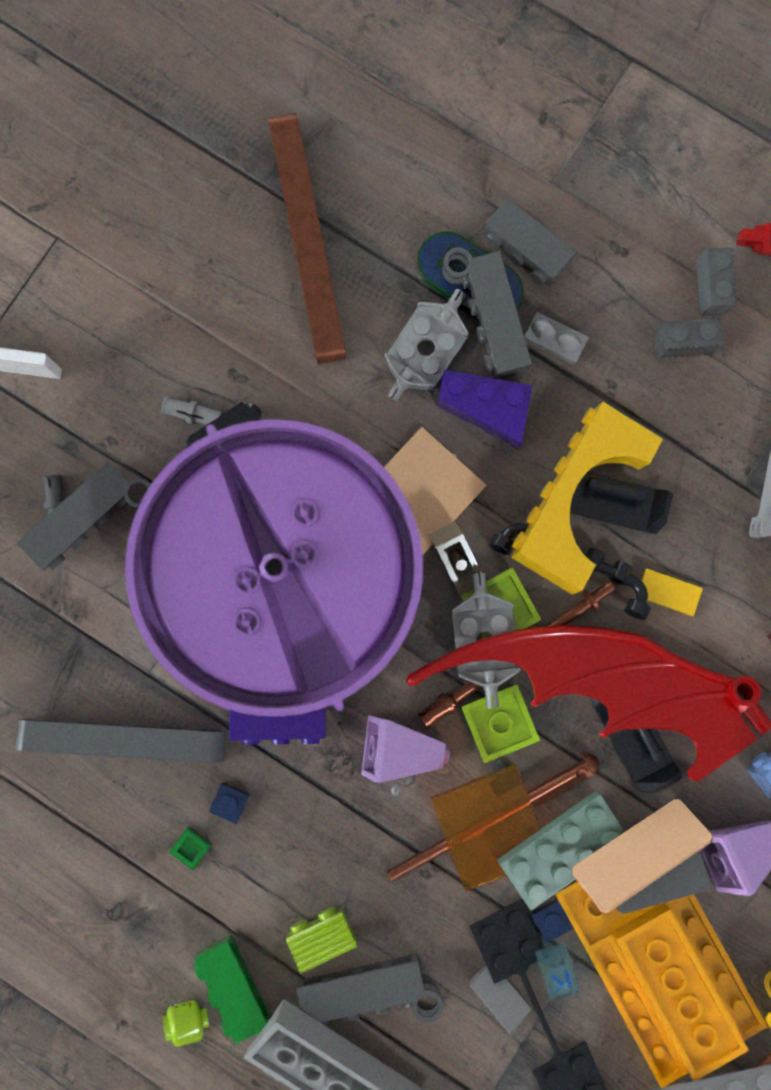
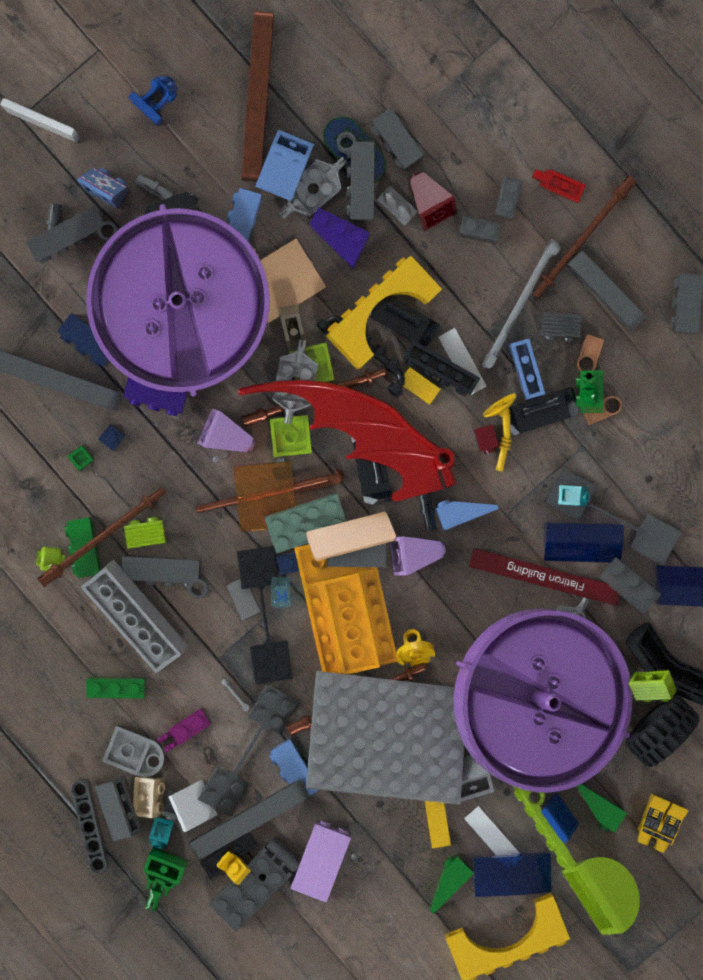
camera: 15 degrees right, 5 degrees up
(115, 429) = (104, 187): none -> medium blue slope
(133, 658) = (81, 335): none -> dark blue brick
(161, 259) = (166, 87): none -> blue tile
(200, 1045) = (57, 570): none -> copper bar
(335, 404) = (244, 212): none -> medium blue brick
(376, 322) = (284, 165): none -> medium blue slope
(606, 314) = (432, 200): none -> slope
(697, 556) = (442, 368): none -> black brick
(719, 538) = (459, 355): none -> white sticker
(741, 781) = (427, 512): none -> black pin

